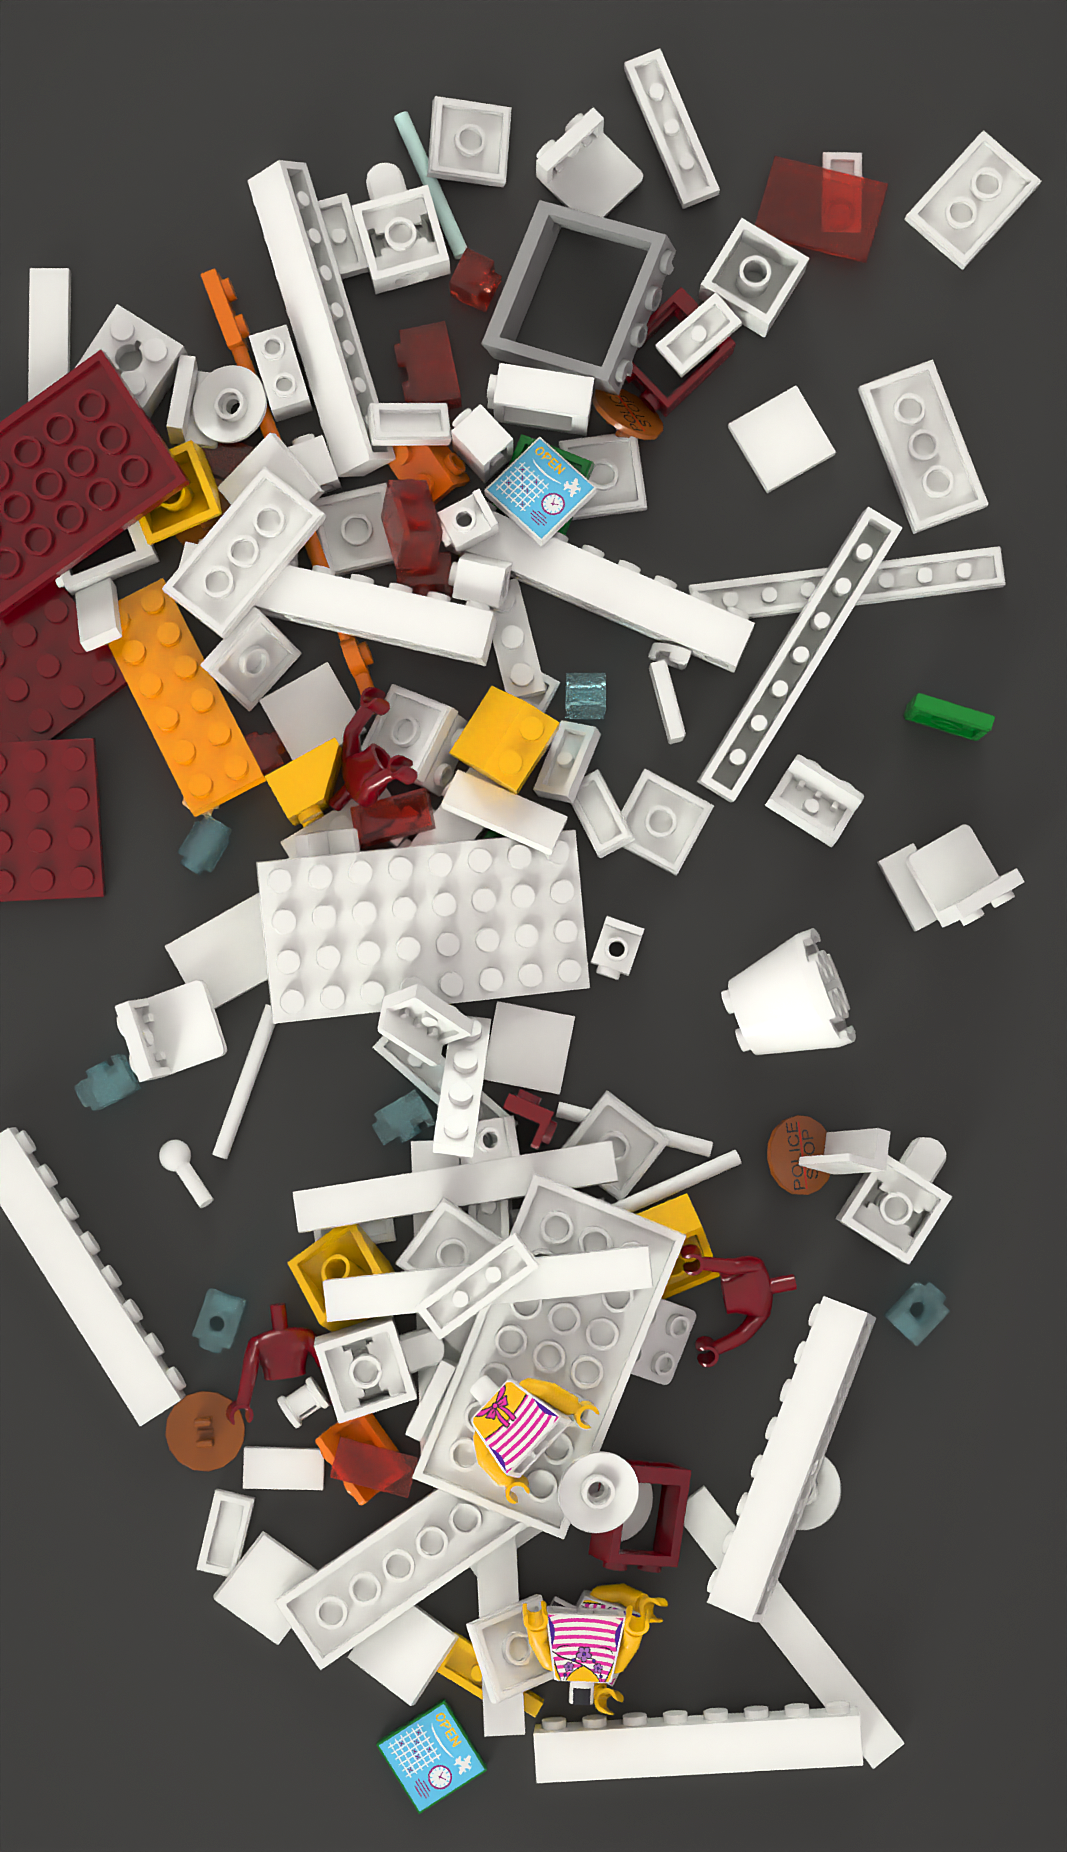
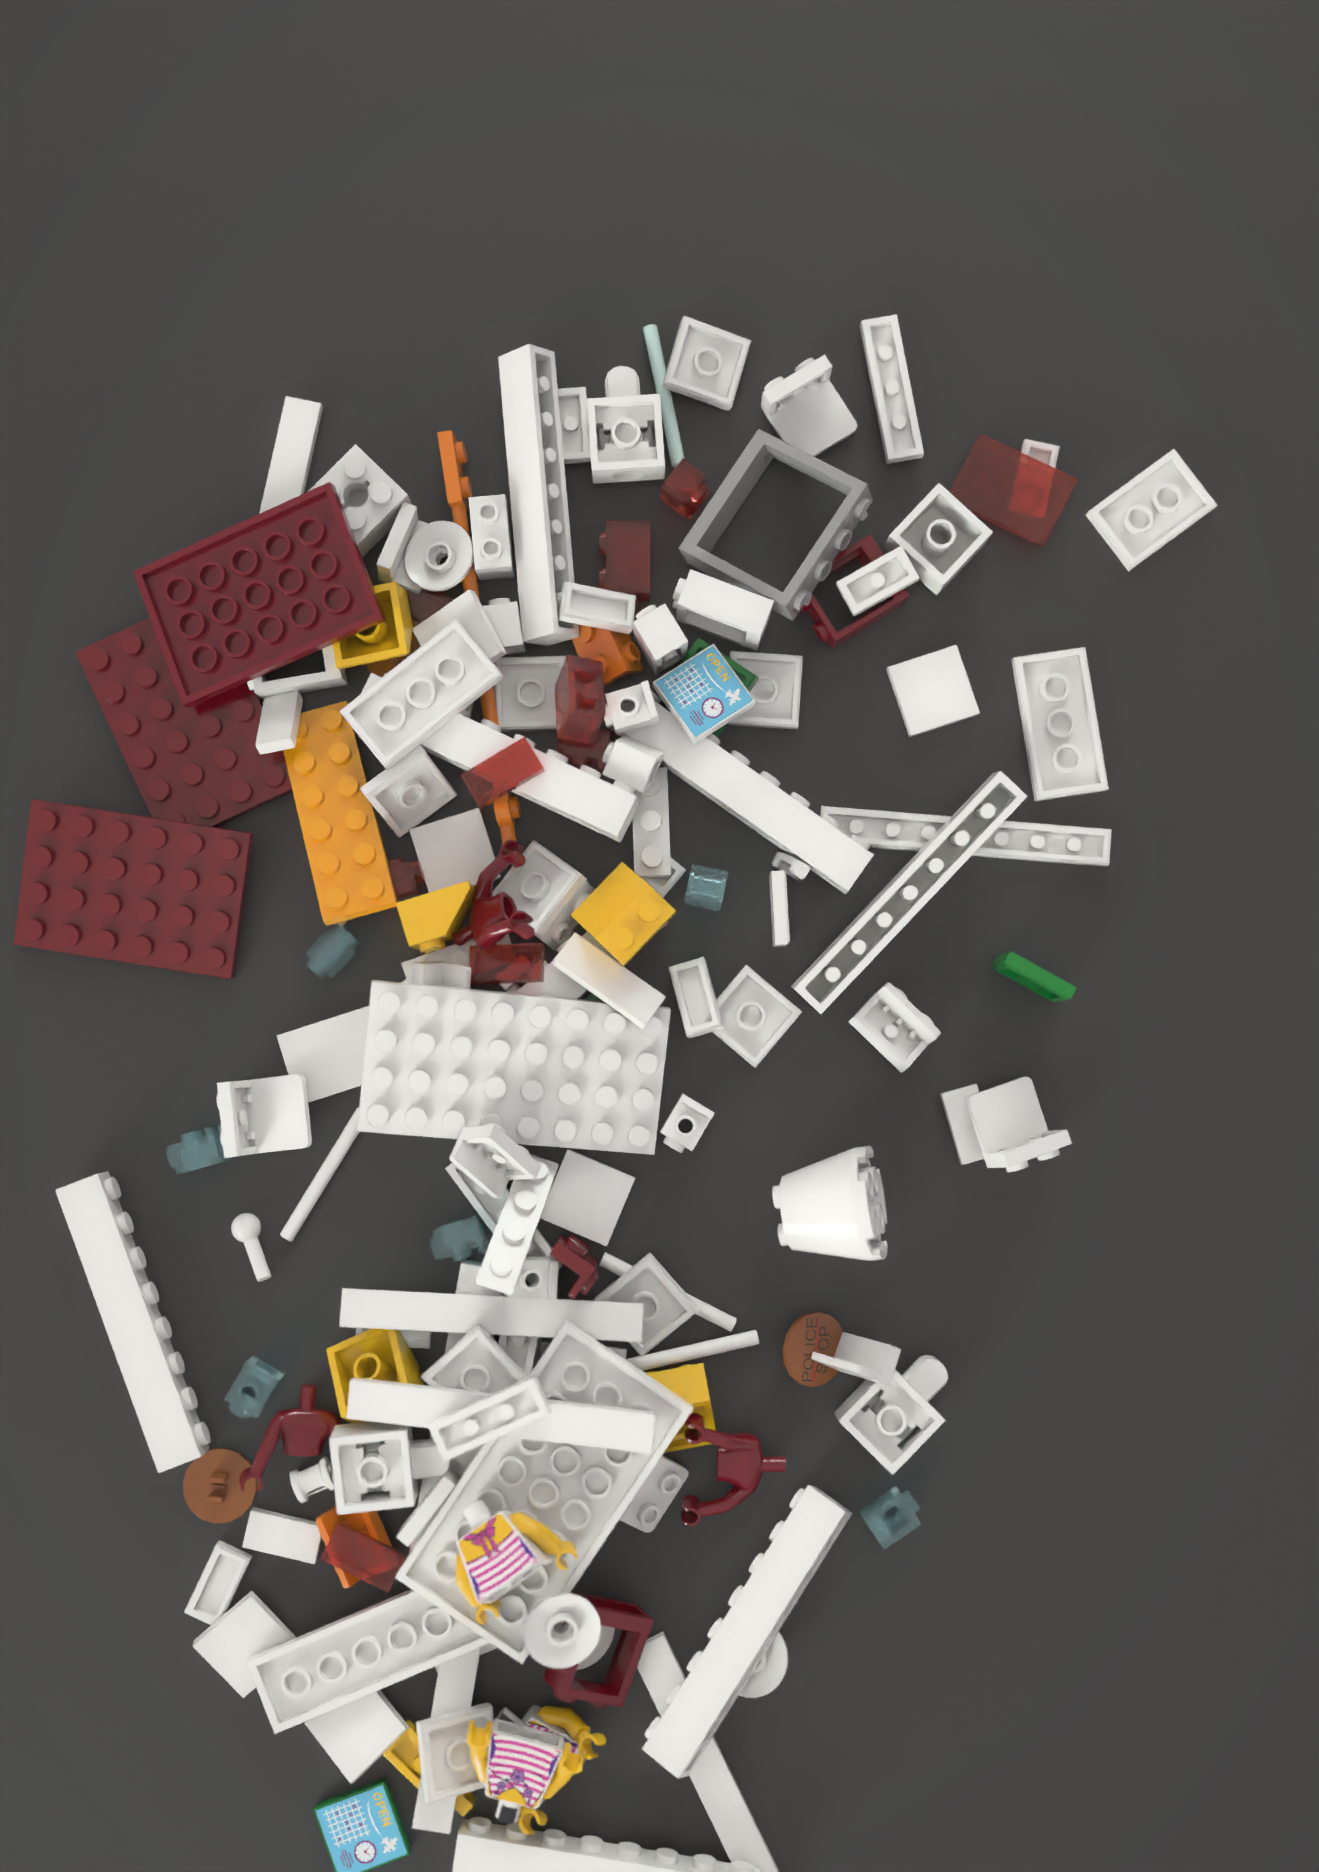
camera: 10 degrees right, 0 degrees up
(347, 616) = (502, 772): none -> clear red tile
(567, 761) = (676, 944): white plate -> none
(628, 415) = (798, 640): dark orange piece -> none

